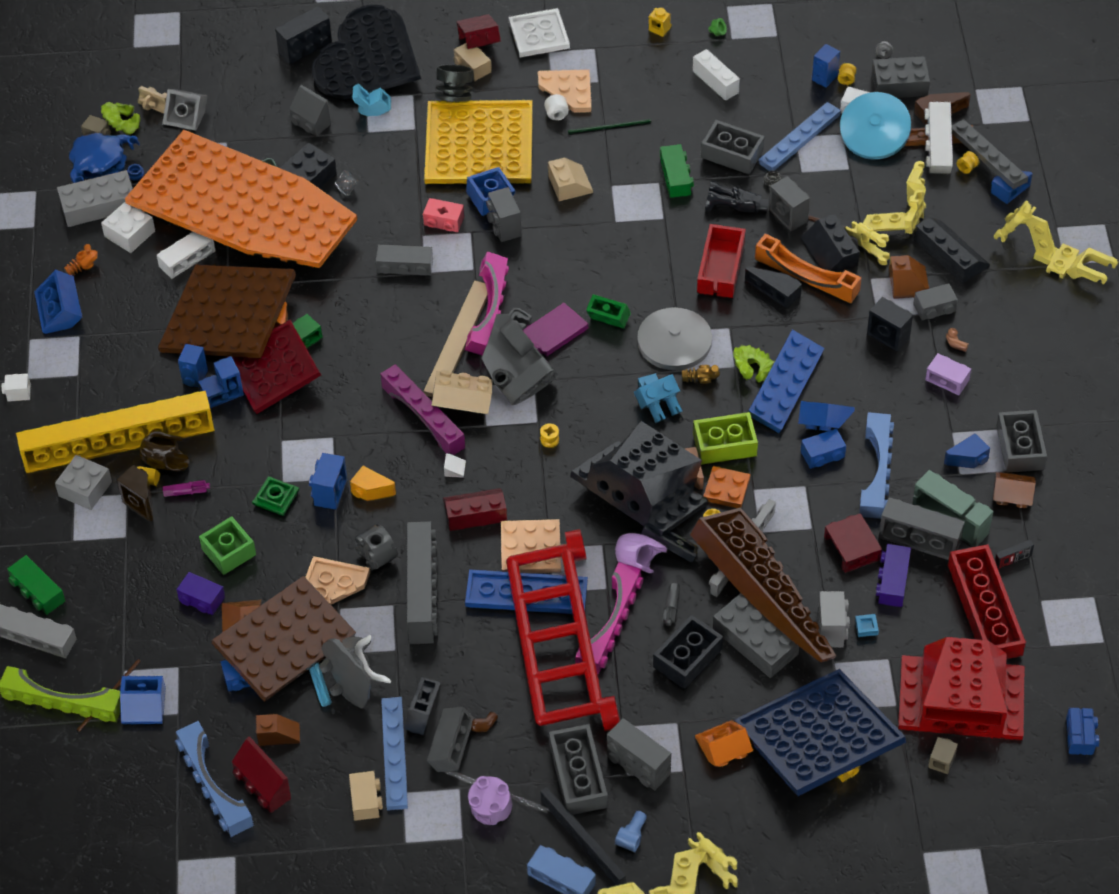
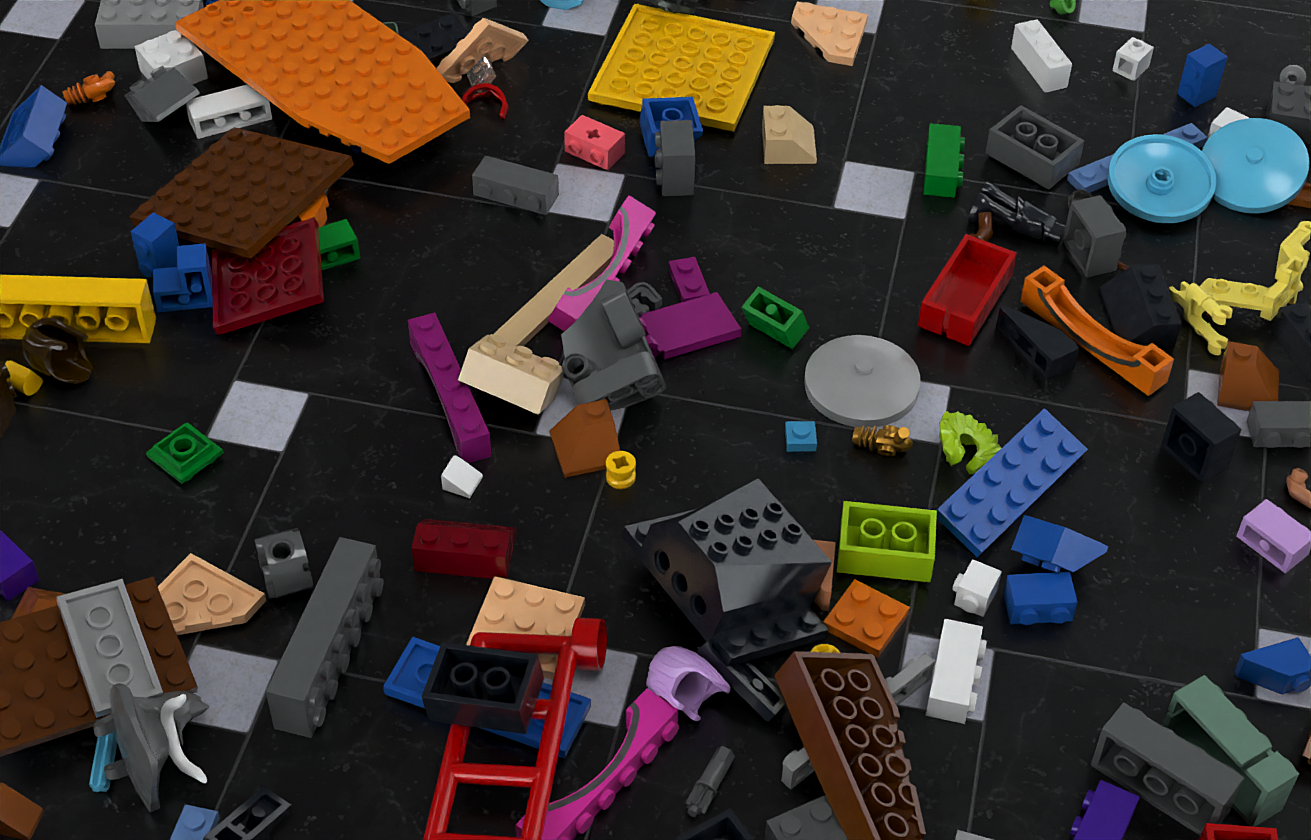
camera: 15 degrees right, 5 degrees down
(138, 255) = (160, 94): none -> dark grey slope
(186, 488) = (64, 409): magenta piece -> none
(227, 545) = (73, 503): bright green brick -> none
(300, 621) = (108, 643): none -> light grey plate
(328, 480) = (263, 449): blue brick -> none
(345, 158) = (484, 40): none -> light nougat plate
(353, 193) = (491, 90): none -> red helmet
(371, 485) = (325, 473): light orange slope -> none
(520, 421) = (585, 438): none -> dark orange slope
(531, 586) = (483, 687): none -> black brick
(541, 298) = (688, 278): none -> magenta plate
(556, 107) = (804, 47): white head -> none
(609, 126) = (870, 87): dark green piece -> none
(652, 393) = (806, 446): dark azure brick -> none
(717, 210) = (985, 226): none -> reddish brown arm
(776, 61) = (1133, 58): none -> white brick
(785, 452) = (976, 587): none -> white brick
(788, 504) = (956, 671): none -> white brick
(820, 150) = (1161, 178): none -> medium azure dish
(847, 74) = (1230, 94): yellow wheel -> none
(854, 542) = (1045, 762): dark red panel -> none
(877, 431) = (1099, 697): medium blue arch -> none

